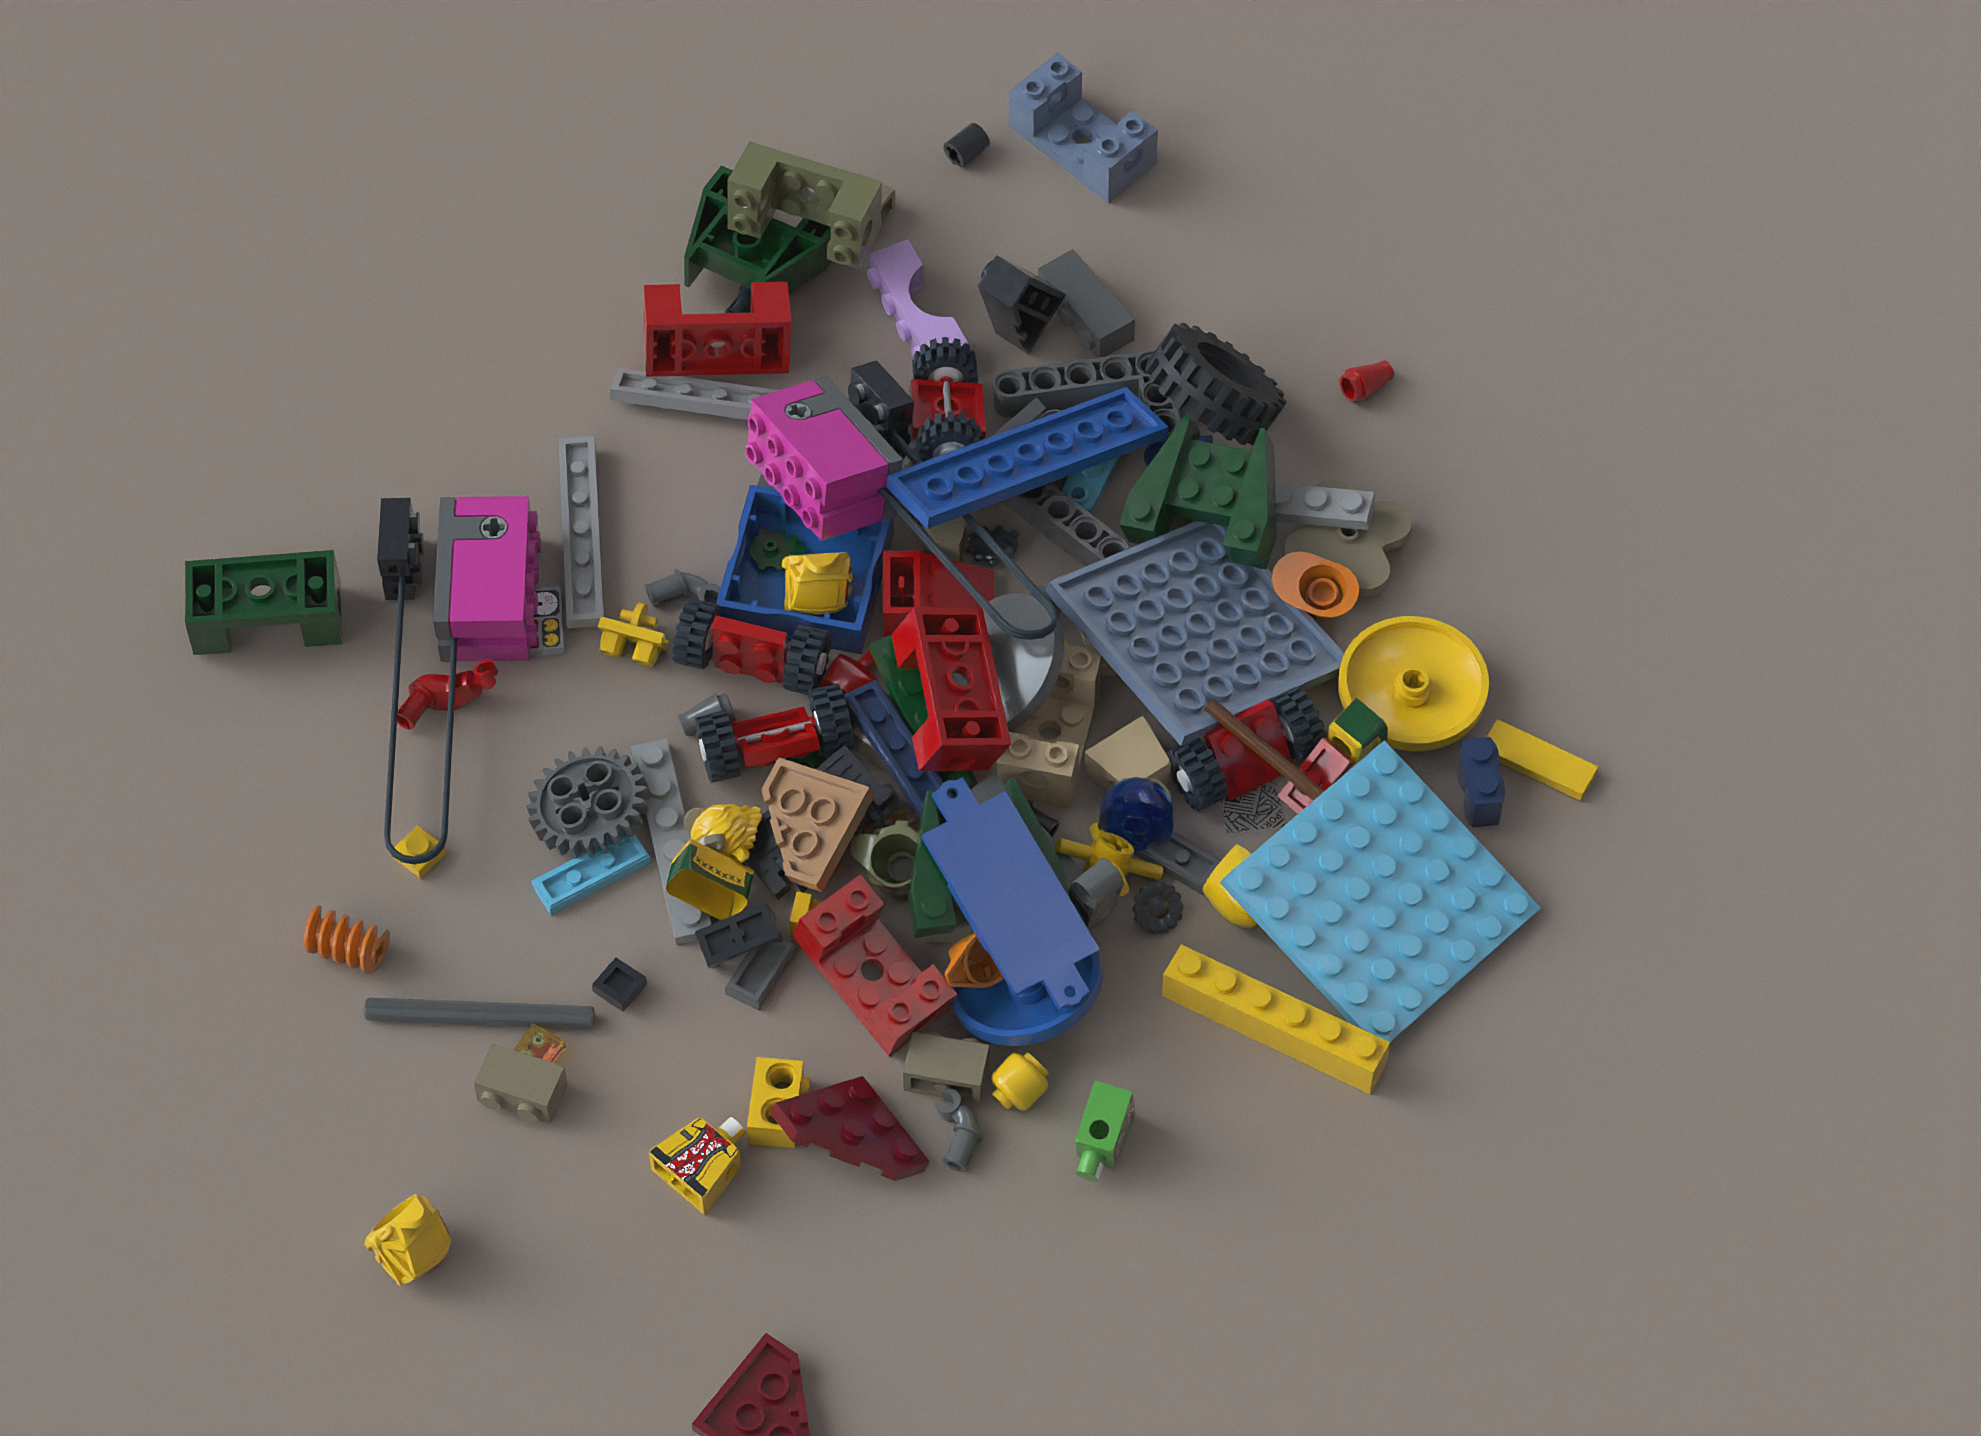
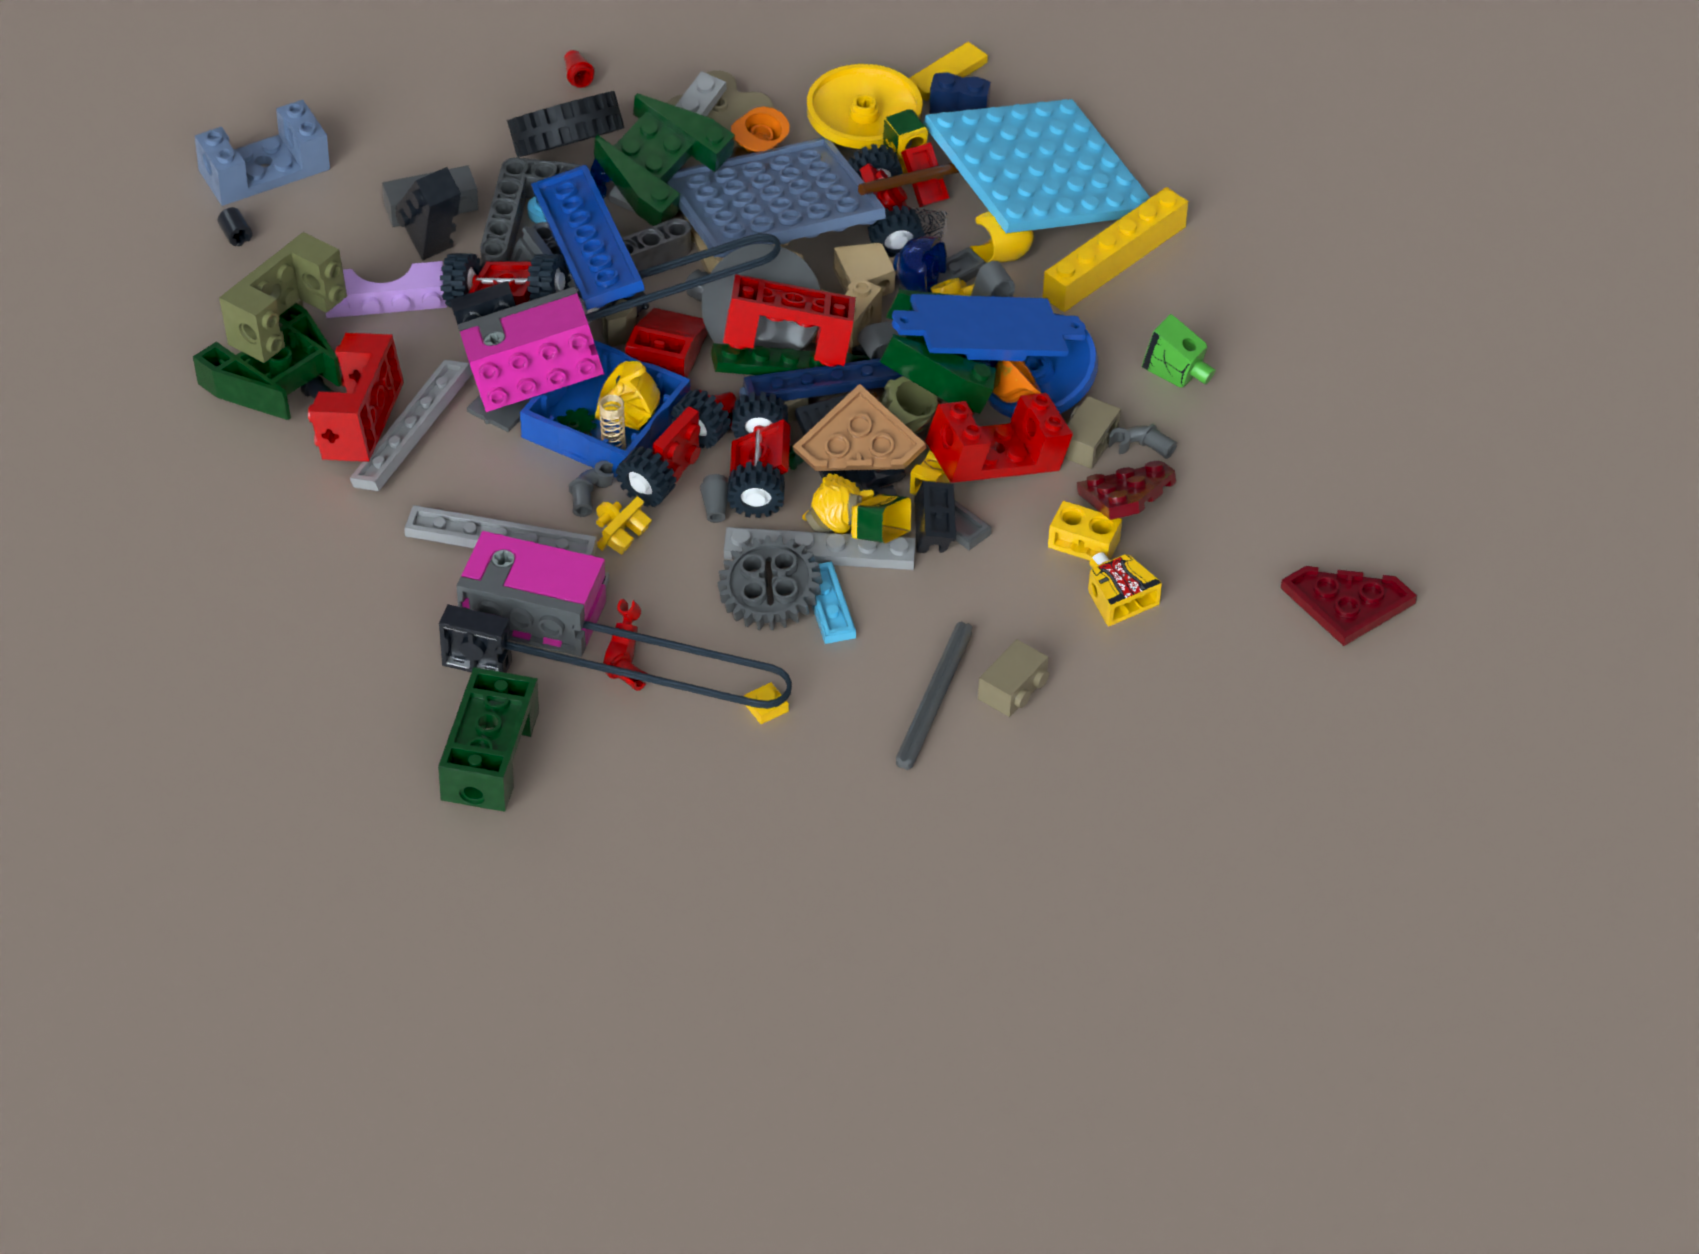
camera: 75 degrees left, 10 degrees down
(343, 942) = (838, 757): orange piece -> none
(410, 1239) = (1146, 766): yellow piece -> none
(541, 1044) = (975, 665): clear yellow tile -> none
(619, 984) = (943, 602): black plate -> none
(753, 568) = (612, 415): none -> tan piece
(1019, 1081) = (1118, 391): yellow head -> none

